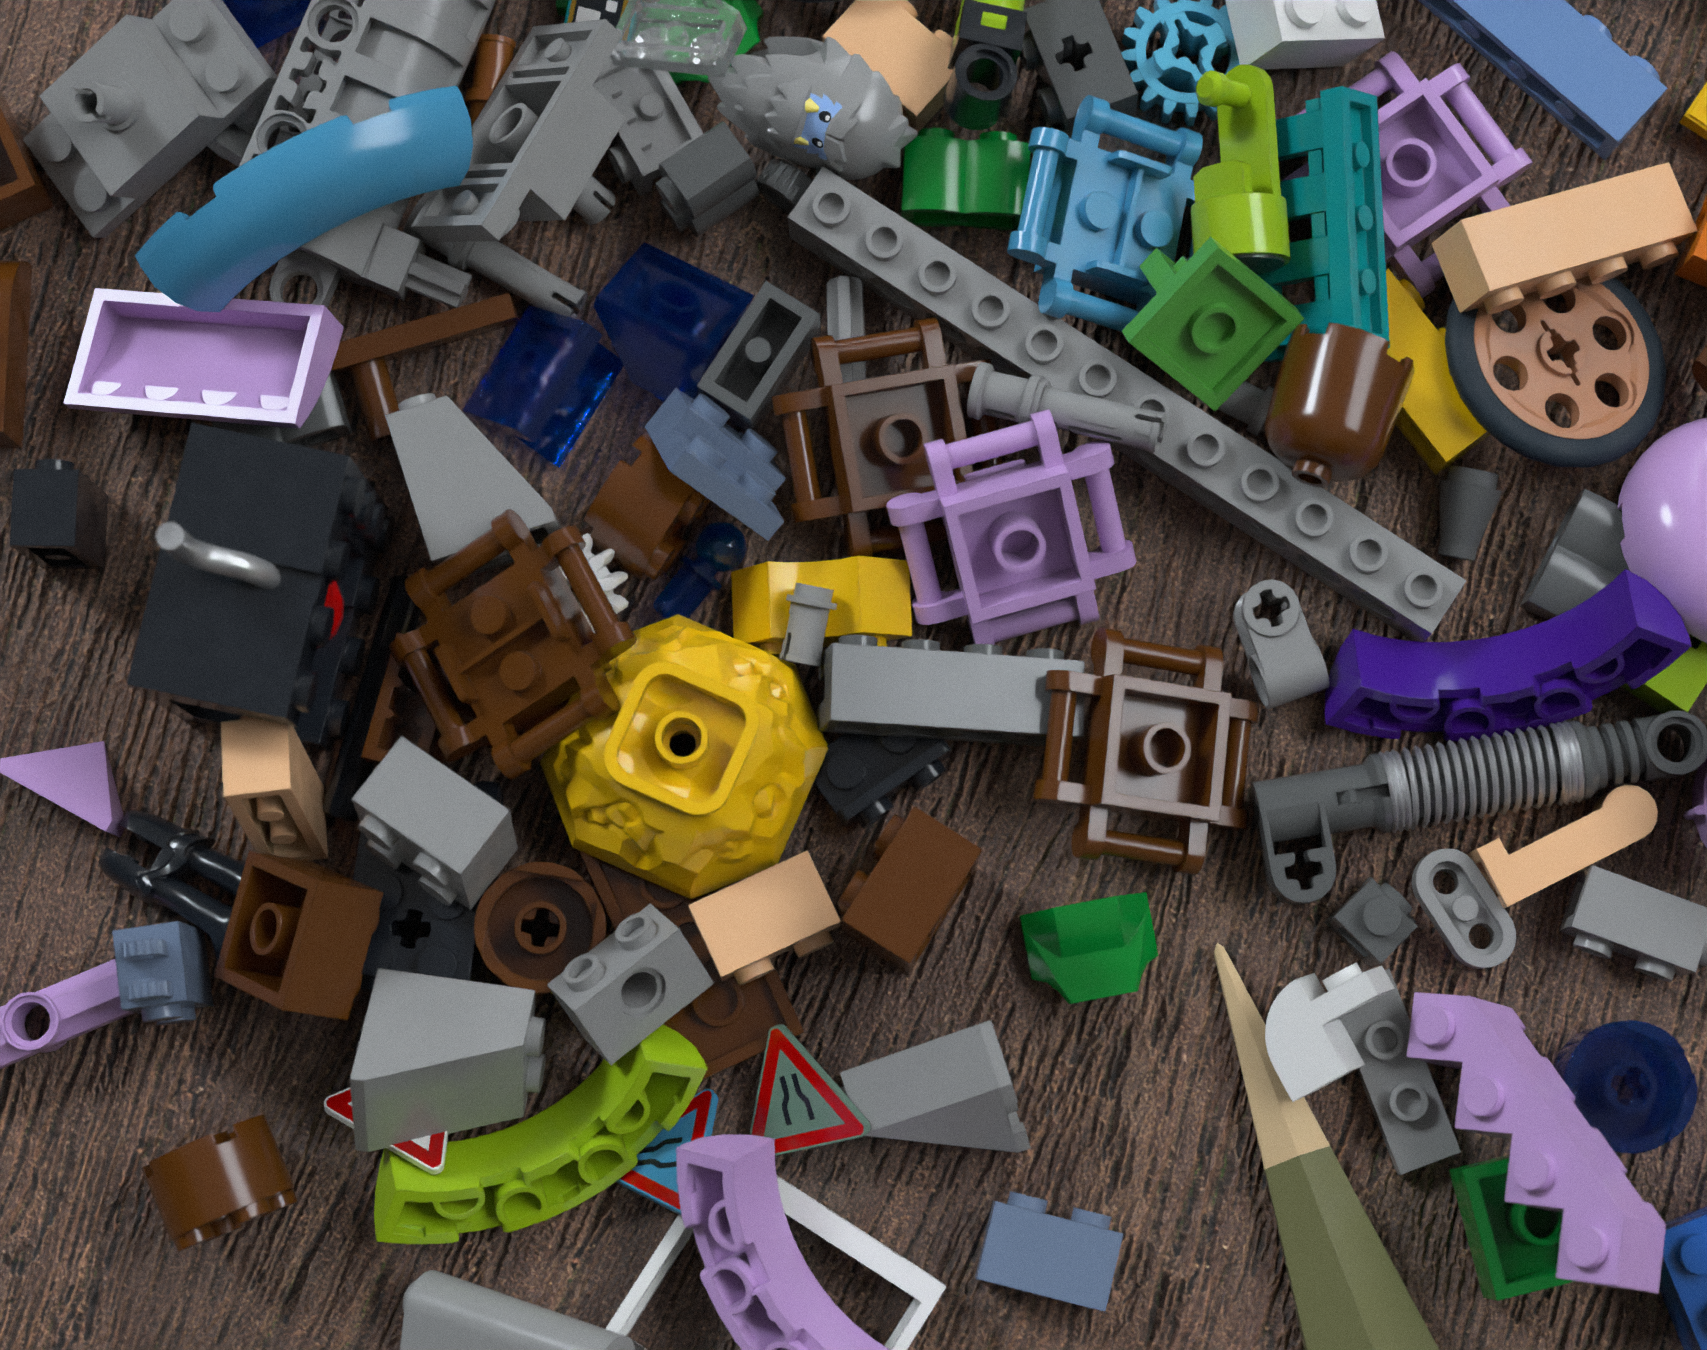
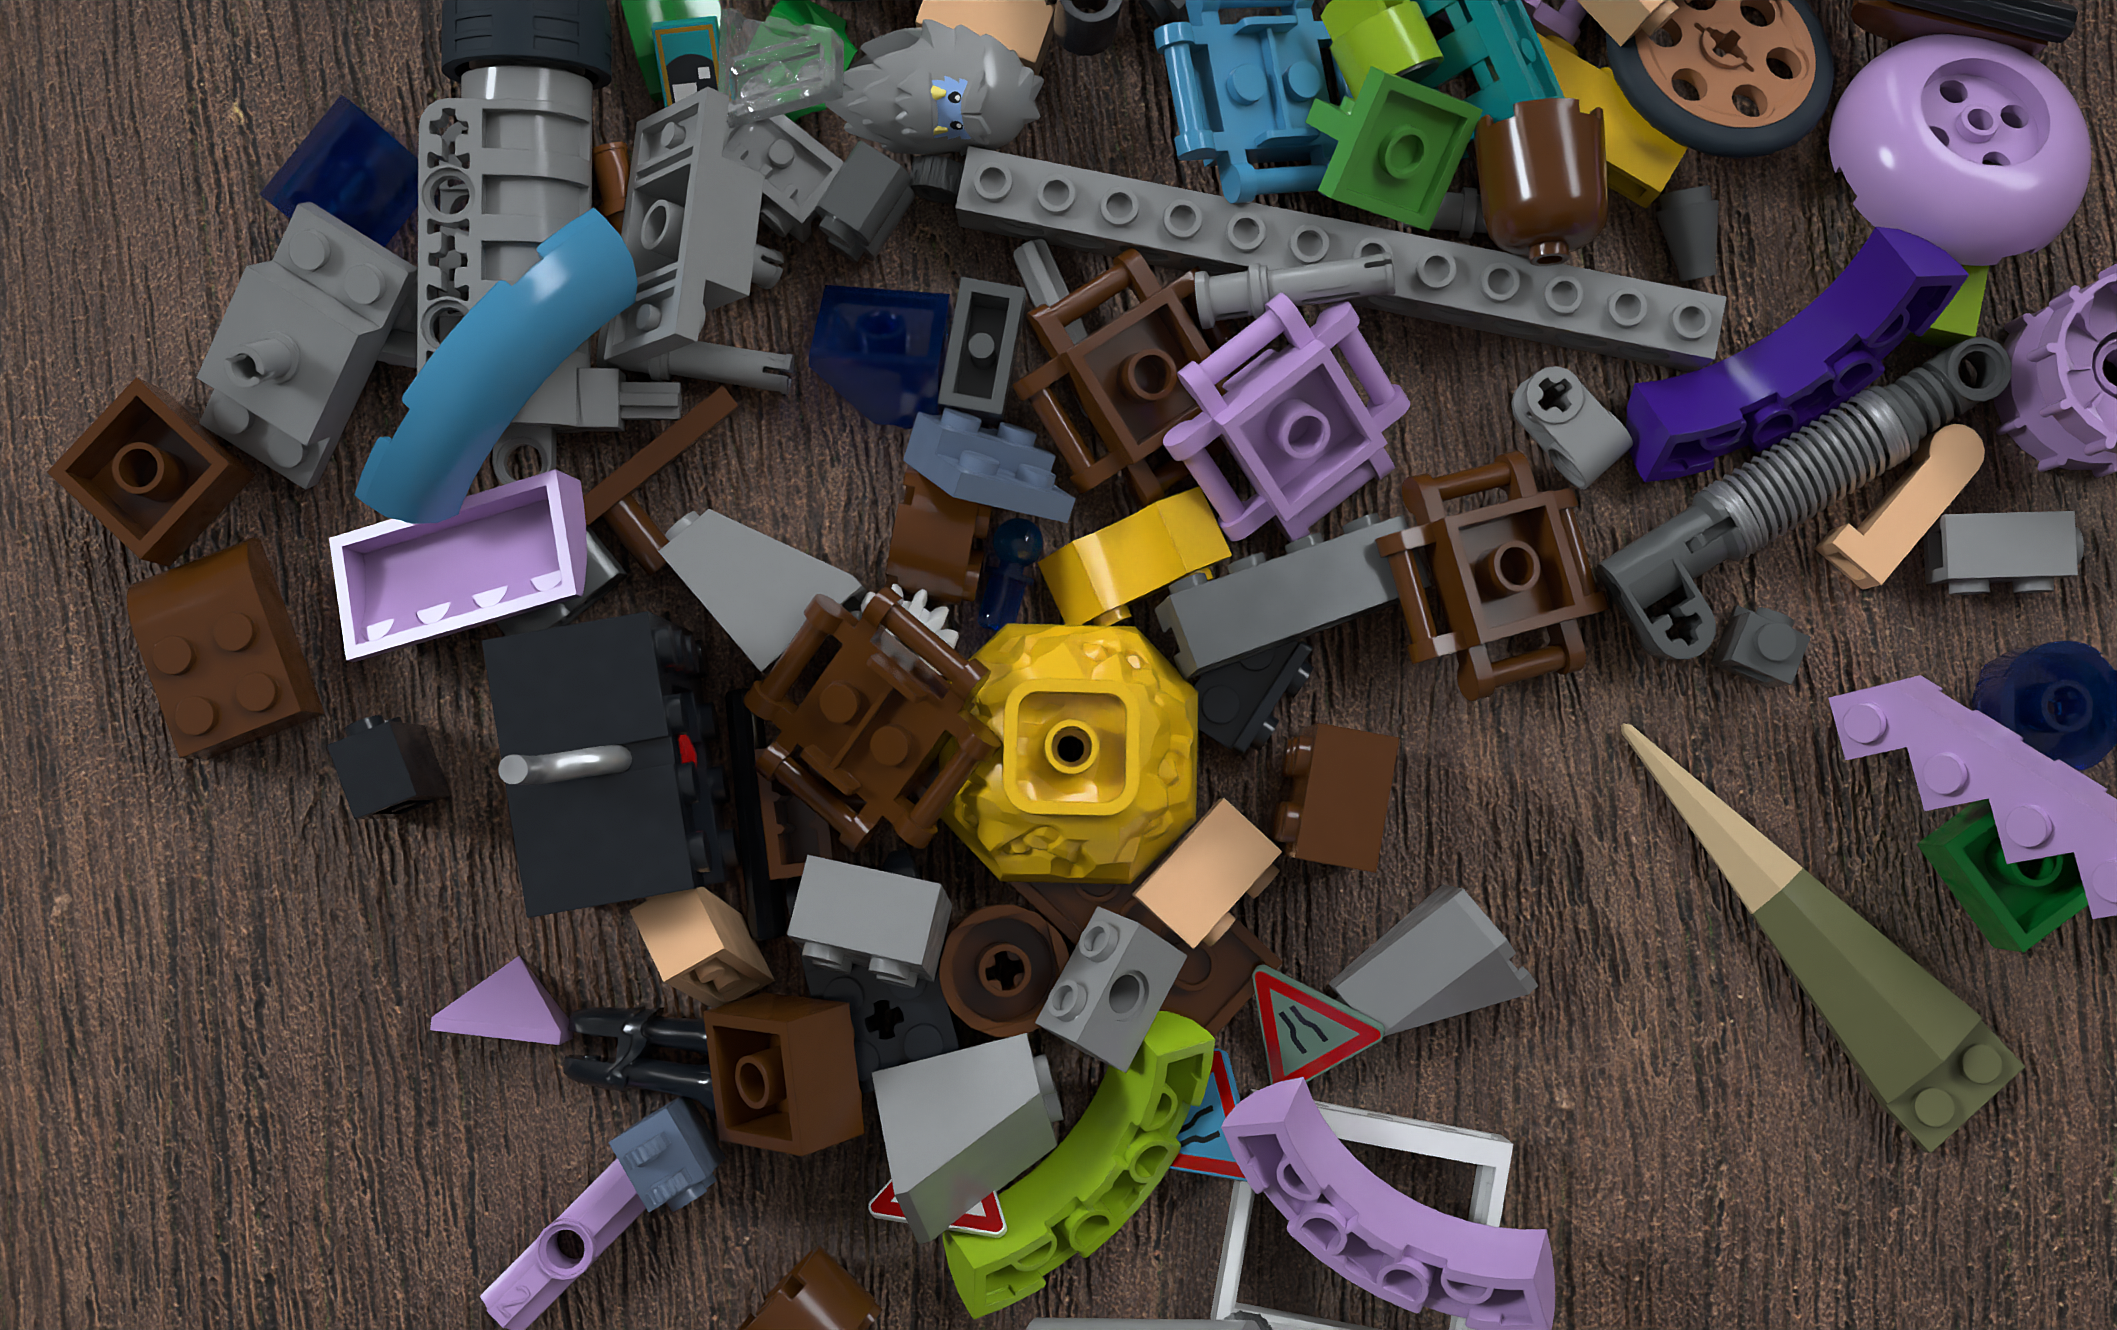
camera: 20 degrees left, 5 degrees up
(545, 383) = (790, 456): clear blue bracket -> none
(807, 624) = (1134, 585): light grey pin -> none
(964, 180) = (1104, 105): green brick -> none
(1049, 1253) = (1589, 1071): sand blue brick -> none
(1091, 946) = (1511, 775): green slope -> none
(1306, 1030) = (1745, 776): white brick -> none
(1399, 1086) = (1839, 789): light grey plate -> none
(1467, 905) = (1835, 597): light grey plate -> none
(1580, 558) = (1815, 232): dark grey brick -> none

